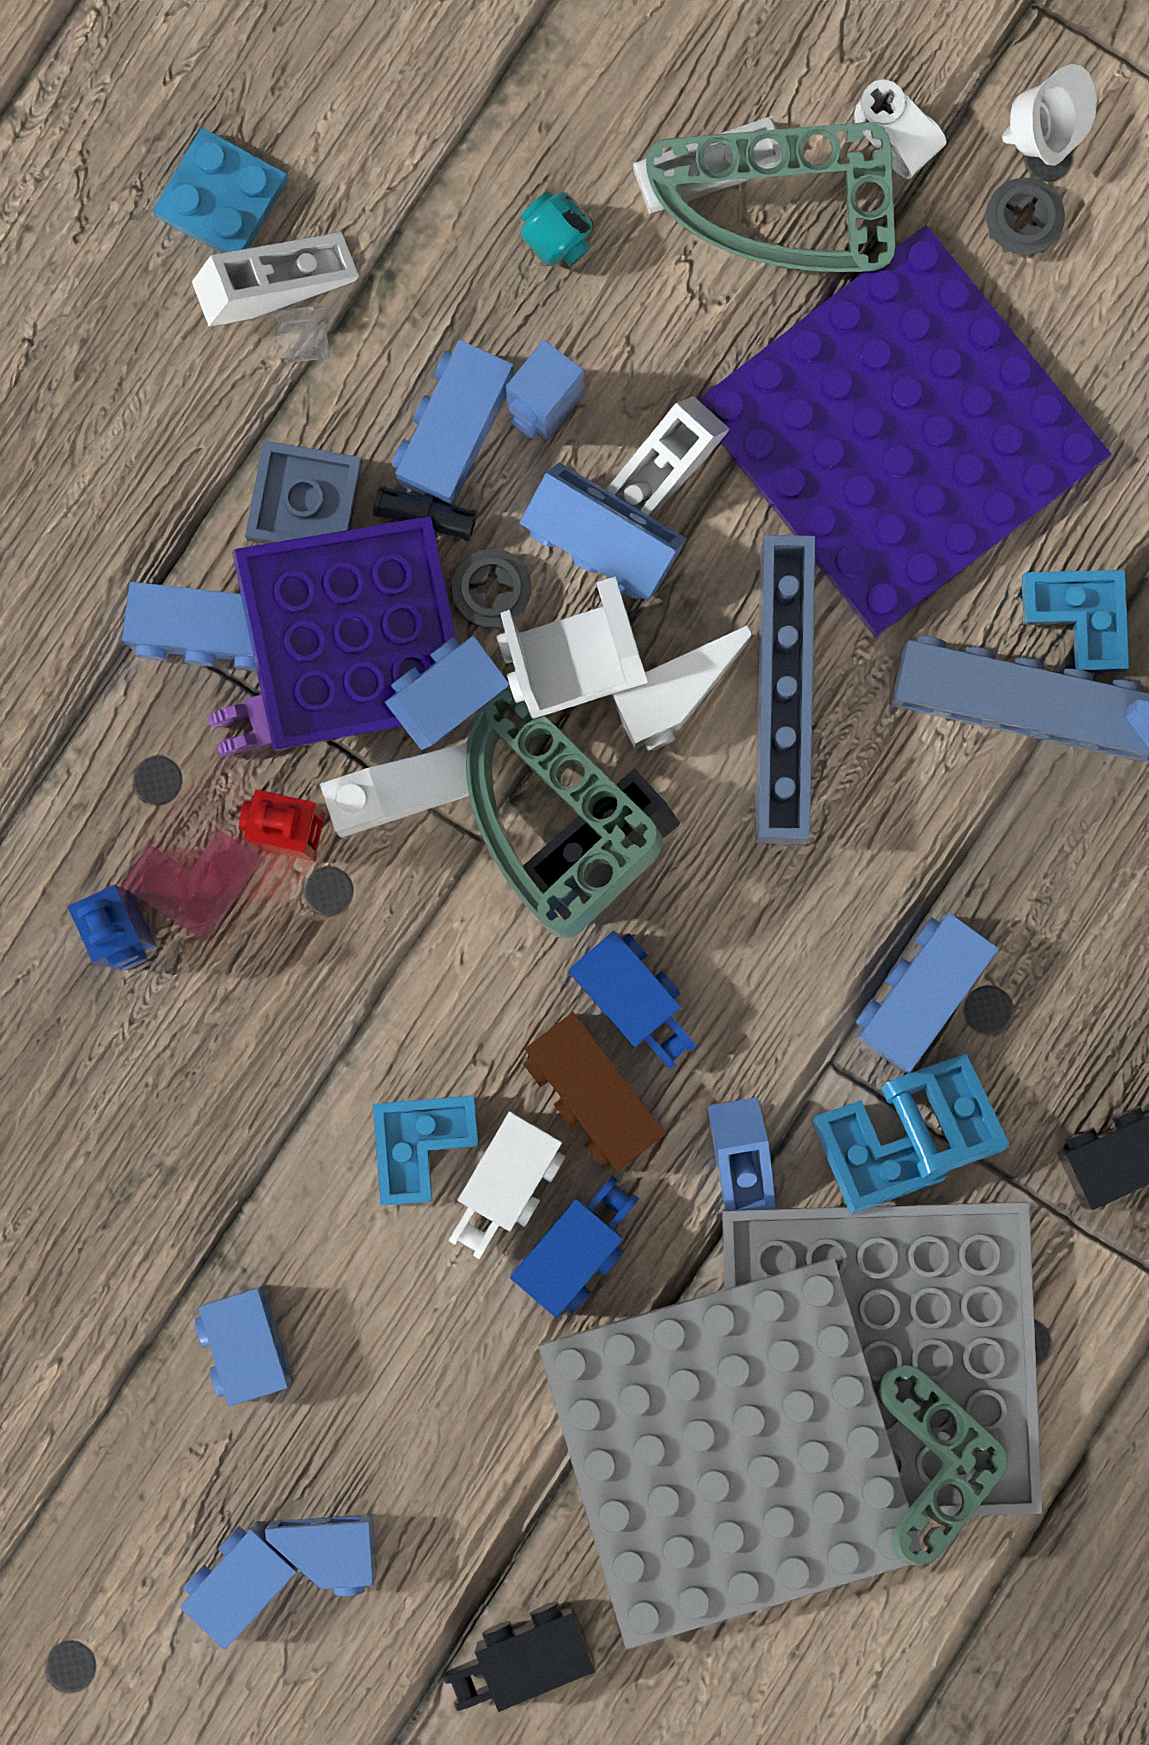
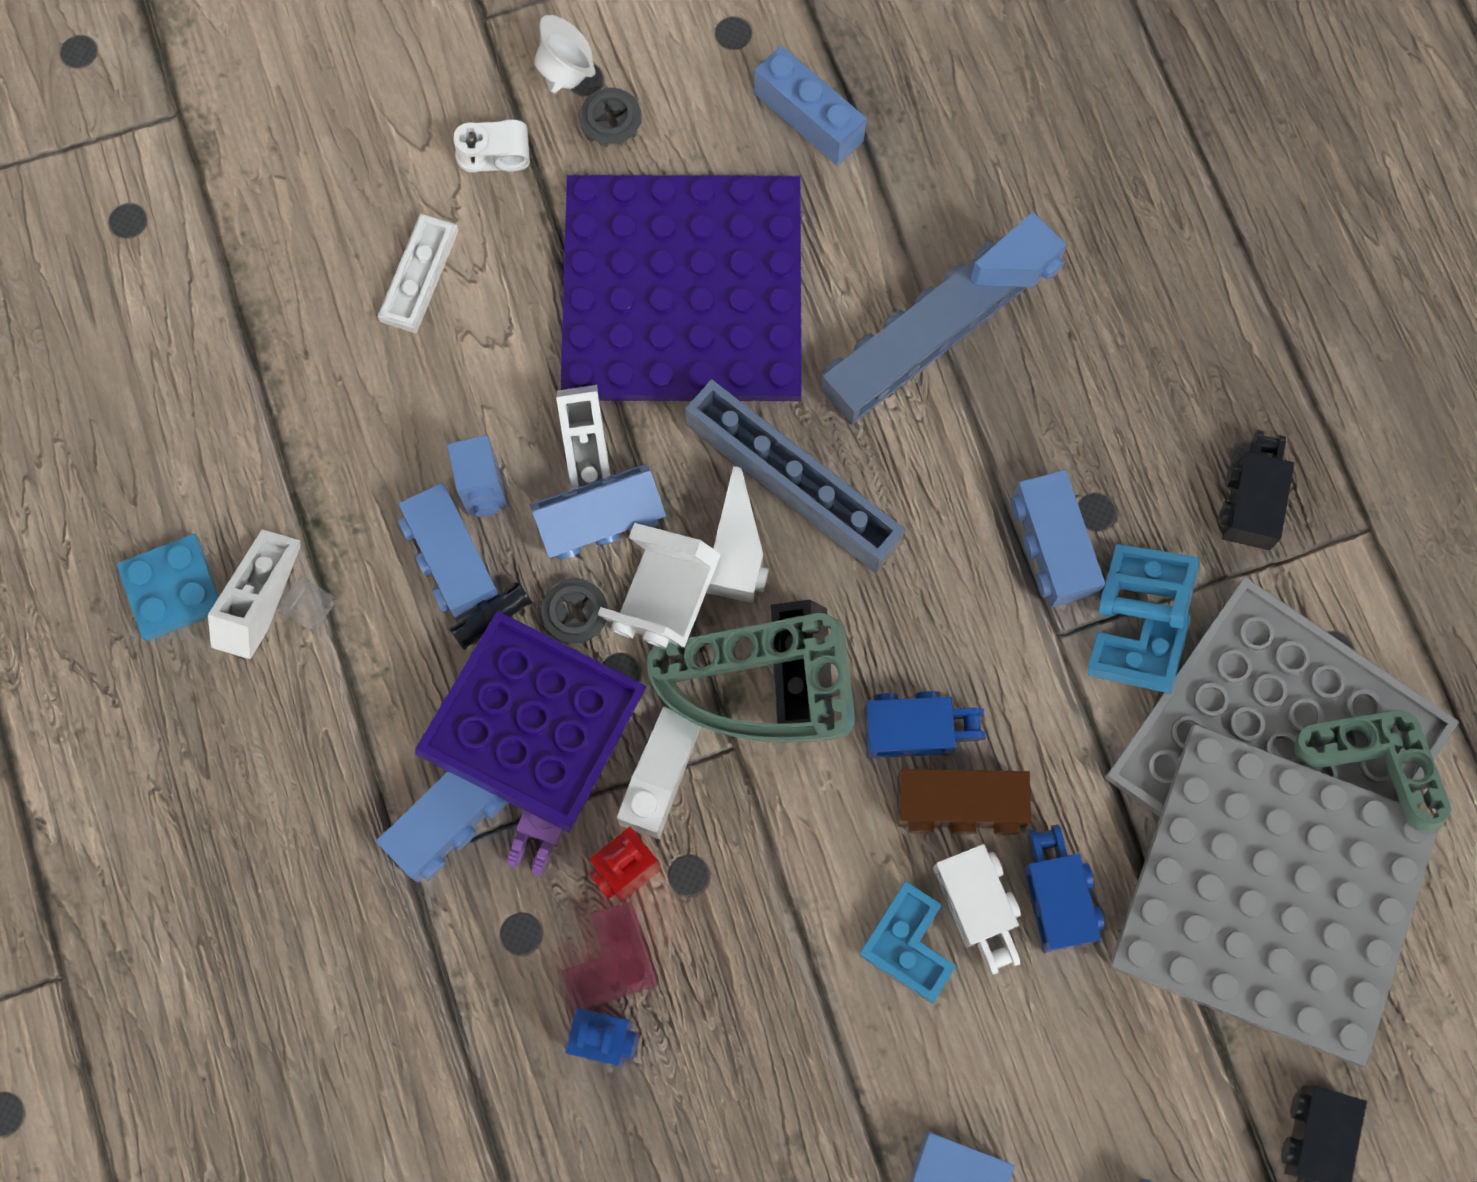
camera: 55 degrees left, 10 degrees down
(301, 493) = (410, 684): sand blue plate -> none
(445, 692) = (622, 687): medium blue brick -> none
(556, 228) = (378, 392): teal head -> none
(742, 1155) = (1078, 734): medium blue slope -> none
(792, 163) = (461, 217): sand green beam -> none
(1092, 604) = (886, 256): dark azure plate -> none

